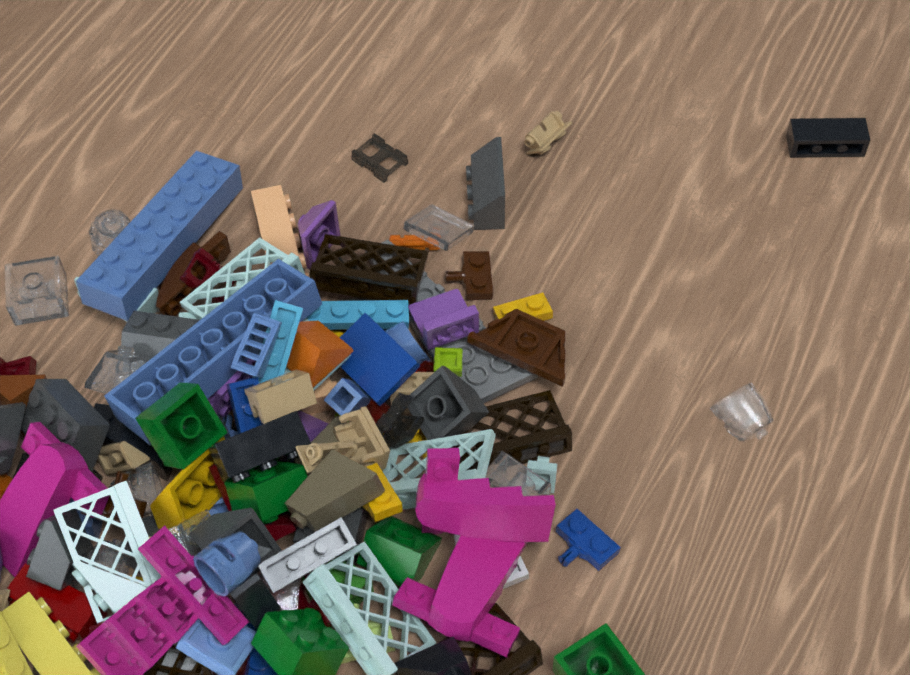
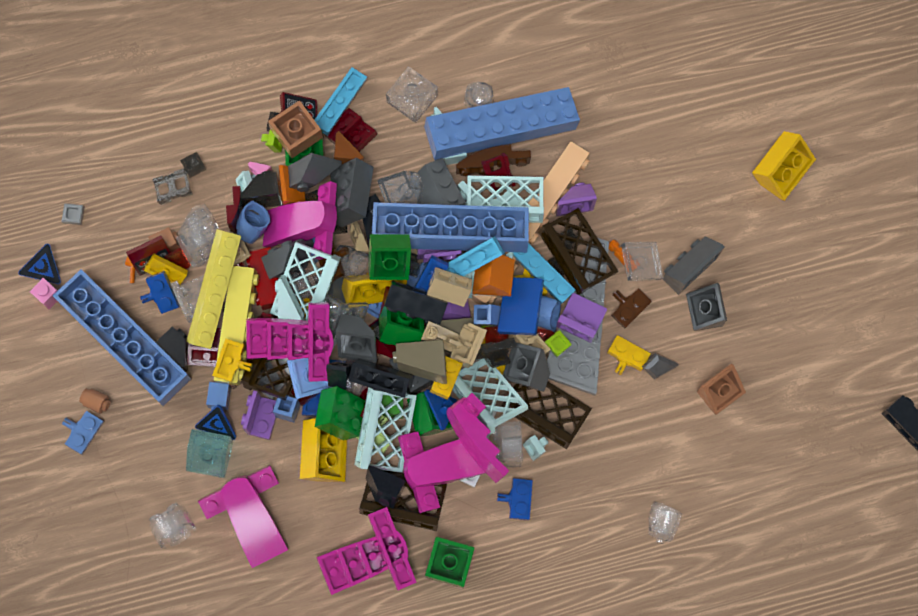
camera: 45 degrees right, 20 degrees up
(227, 562) = (340, 350): medium blue helmet -> none
(266, 349) = (450, 254): medium blue slope -> none
(374, 161) = (656, 183): clear smoke piece -> none
(403, 529) = (439, 407): none -> blue piece
(466, 54) = (784, 165): none -> yellow slope
(525, 343) = (604, 375): reddish brown wing -> none
(540, 140) = (756, 263): tan hinge -> none
(545, 208) = (707, 307): none -> dark grey slope
(563, 295) = (659, 365): none -> flat silver piece
(642, 259) = (722, 389): none -> nougat slope

